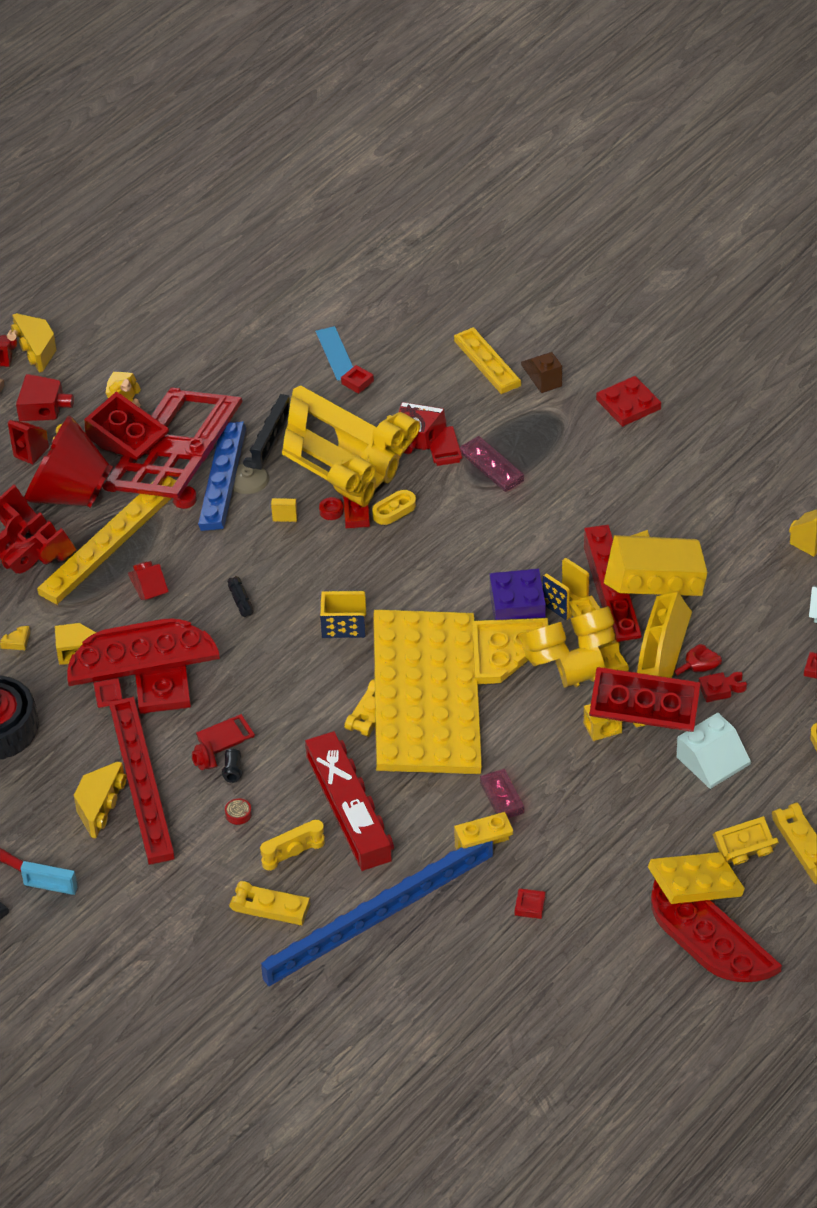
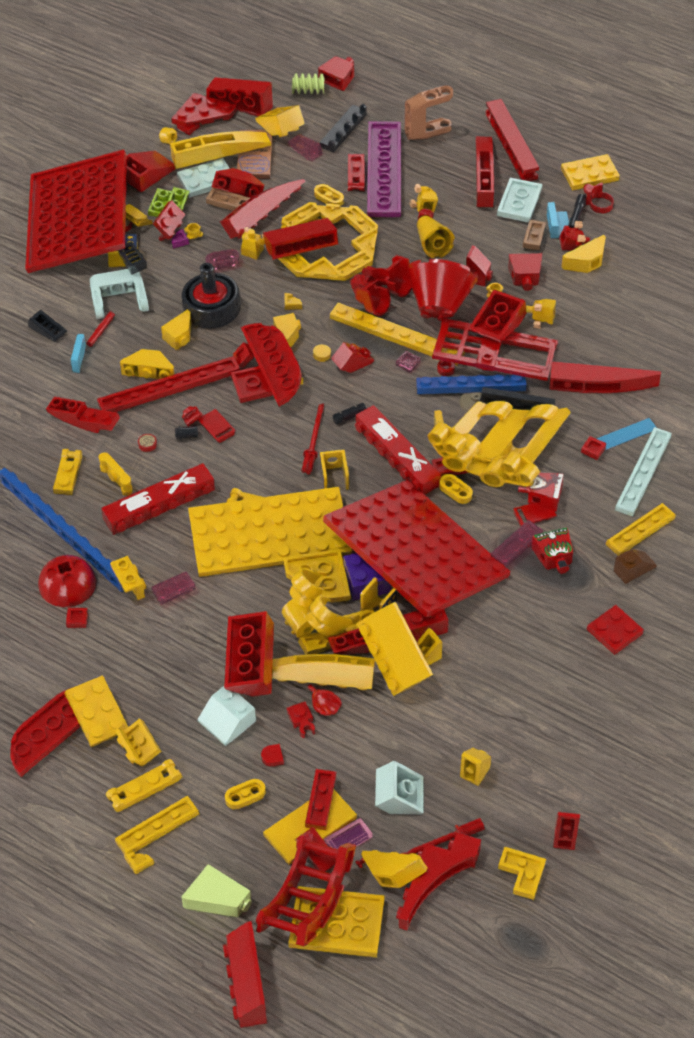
camera: 80 degrees right, 5 degrees up
(40, 759) = (178, 330): none -> yellow slope
(122, 615) = (321, 353): none -> yellow tile
(163, 532) = (408, 361): none -> clear pink tile
(174, 878) = (81, 416): none -> red slope
(248, 360) = (600, 379): none -> red slope
(306, 639) = (310, 454): none -> red piece
(319, 553) = (397, 450): none -> red brick
(400, 345) = (643, 472): none -> light aqua tile
(466, 912) = (66, 581): none -> red piece
(489, 544) = (416, 547): none -> red plate
(509, 430) = (554, 549): none -> red torso
(772, 717) = (272, 755): none -> red tile

